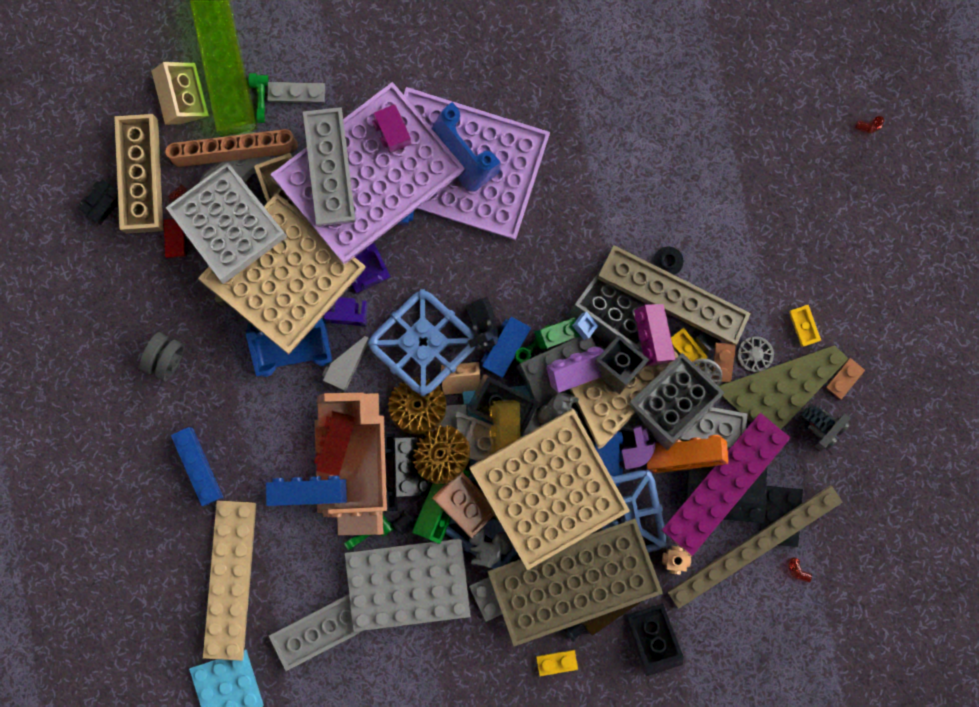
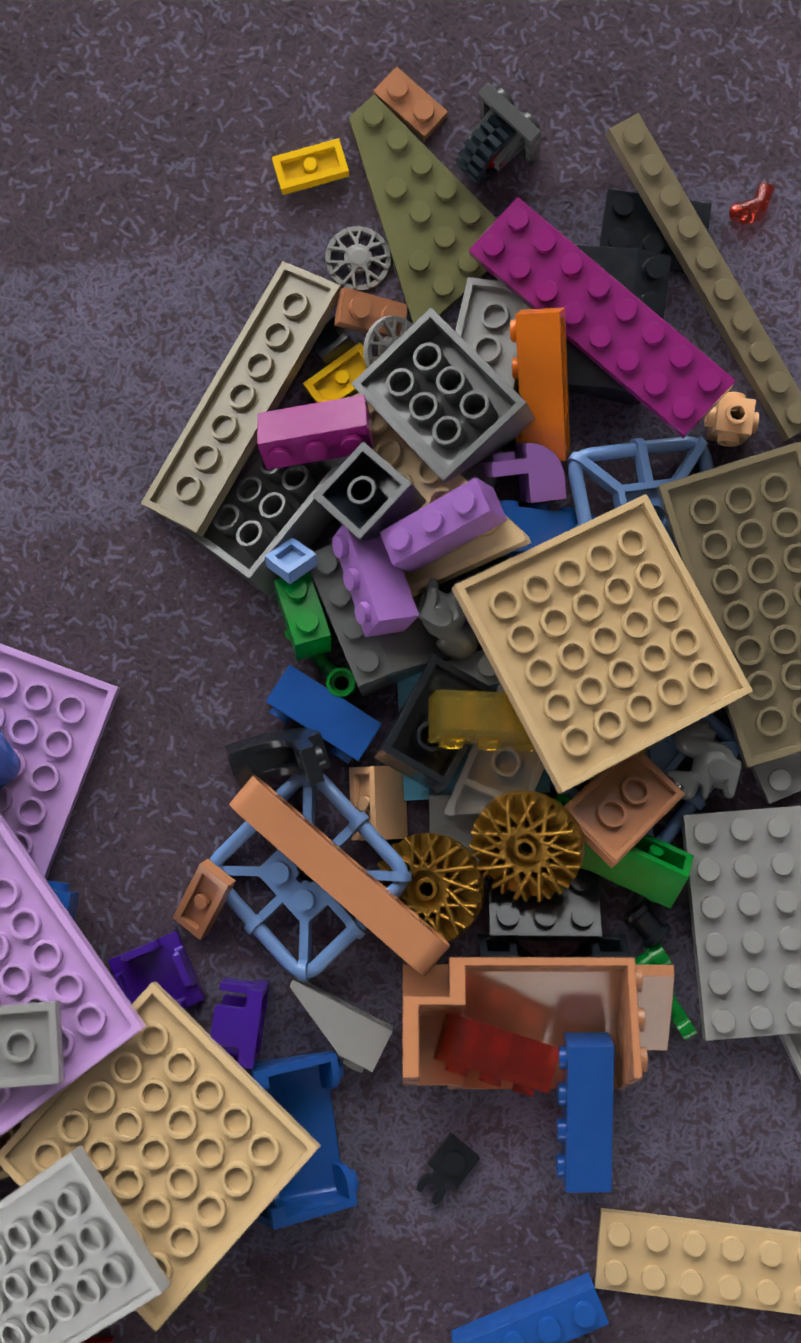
camera: 90 degrees left, 0 degrees up
(276, 424) = (451, 1164): none -> black plate
(407, 290) = (204, 899): none -> nougat plate
(423, 358) = (339, 875): none -> nougat beam
(605, 403) = (443, 525): none -> medium lavender brick
(669, 251) = (163, 393): black piece -> none

